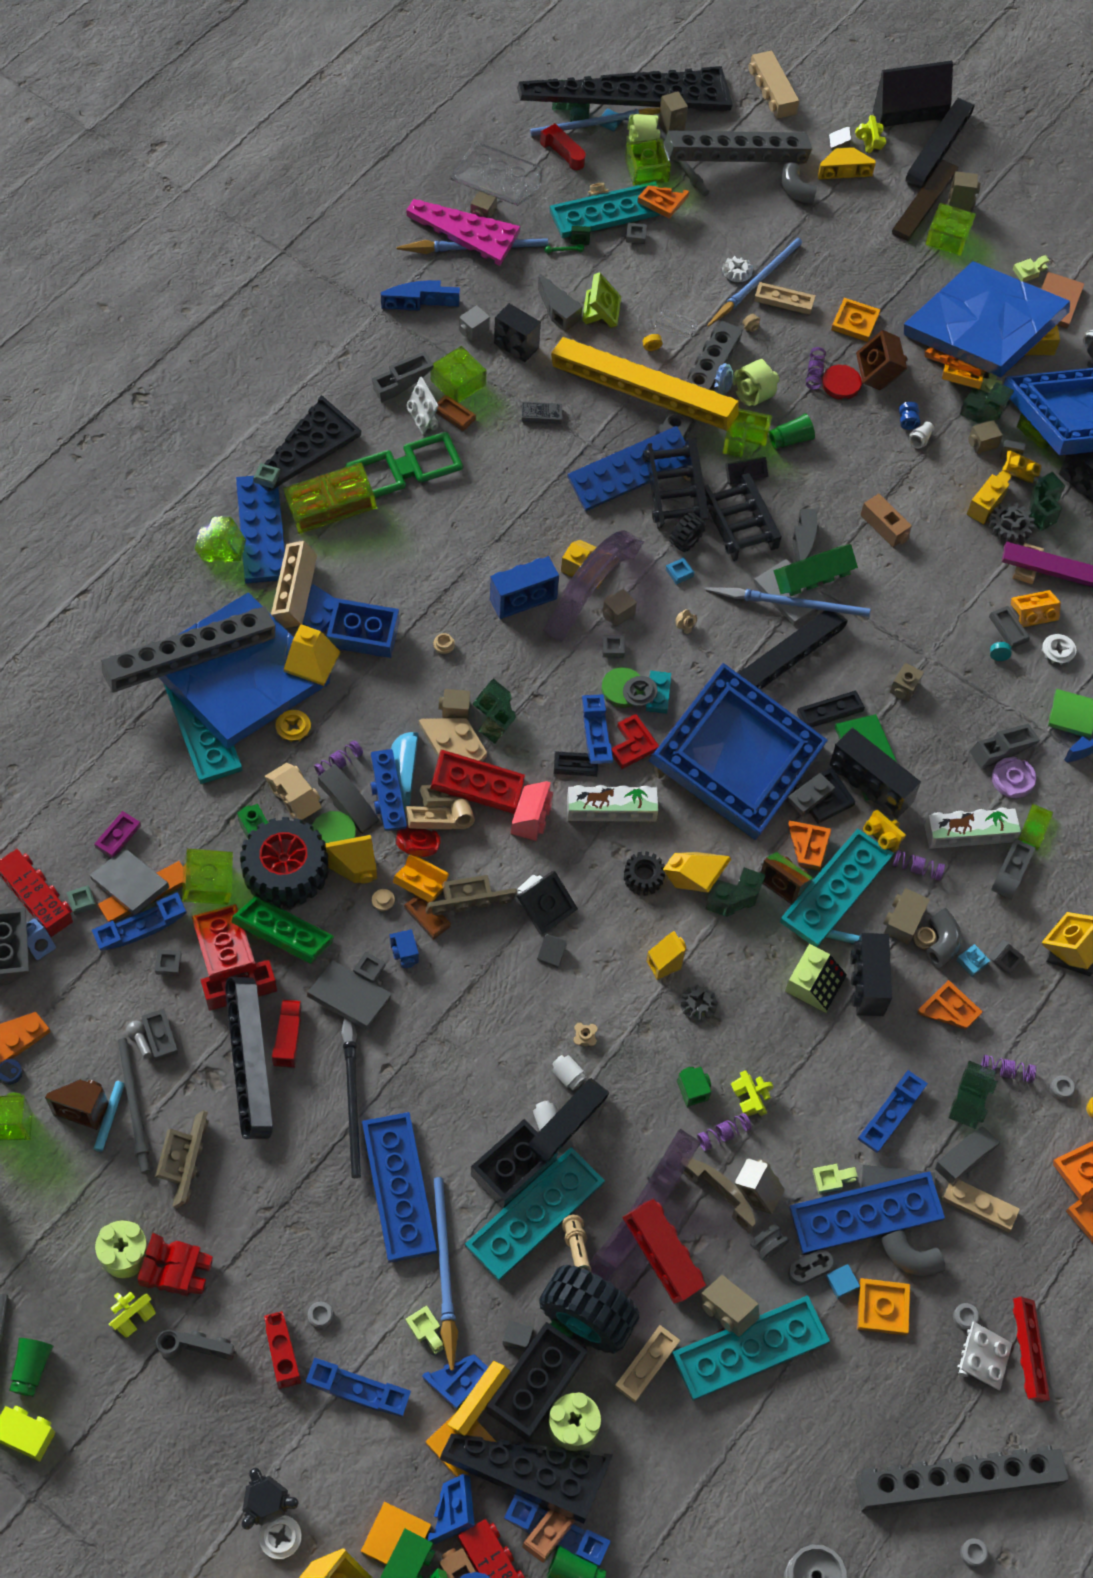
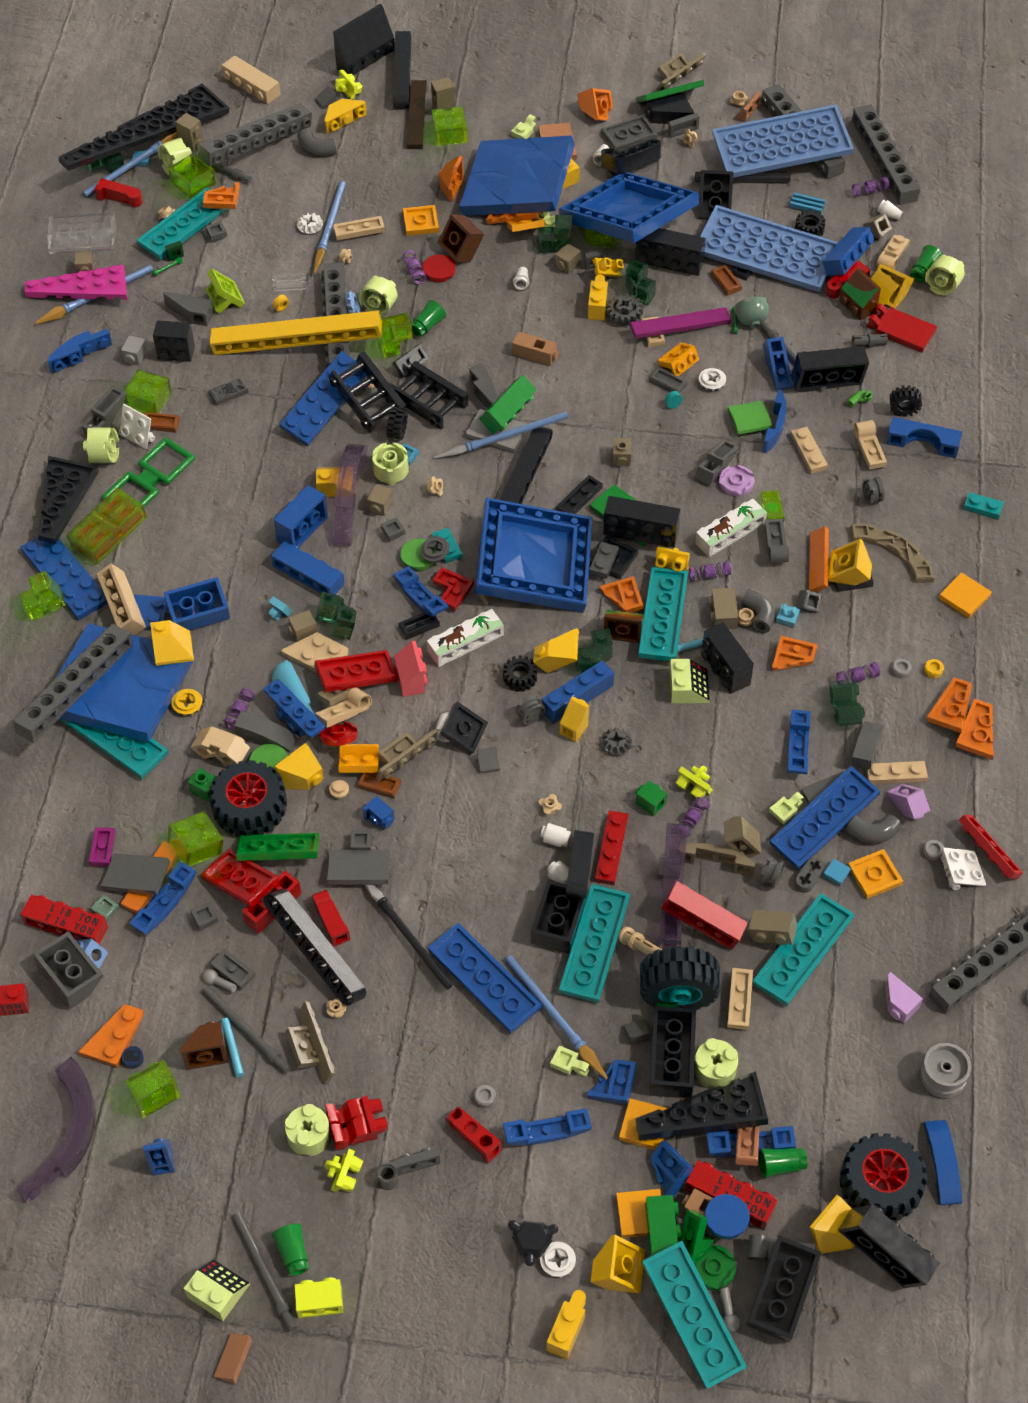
camera: 25 degrees left, 5 degrees down
(232, 1139) = (335, 1013): none -> tan plate
(266, 475) = (48, 531): sand green tile -> none
(377, 409) = (101, 445): none -> yellowish green brick
(444, 643) = (264, 588): tan plate -> none
(444, 673) = (278, 609): none -> medium azure tile
(479, 1398) = (639, 1083): yellow tile -> none
(499, 646) = (307, 569): none -> blue brick
(619, 1117) = (611, 848): none -> red plate
(628, 920) = (530, 710): none -> dark grey wheel
(653, 573) = (390, 463): none -> yellowish green brick
(692, 925) = (584, 687): none -> blue brick
(819, 1467) = (901, 999): none -> lavender slope
(909, 415) = (504, 268): blue wheel -> none
(916, 288) = (451, 177): none -> orange slope
(972, 1245) = (909, 800): none -> lavender slope
(1047, 915) = (818, 559): none -> orange tile

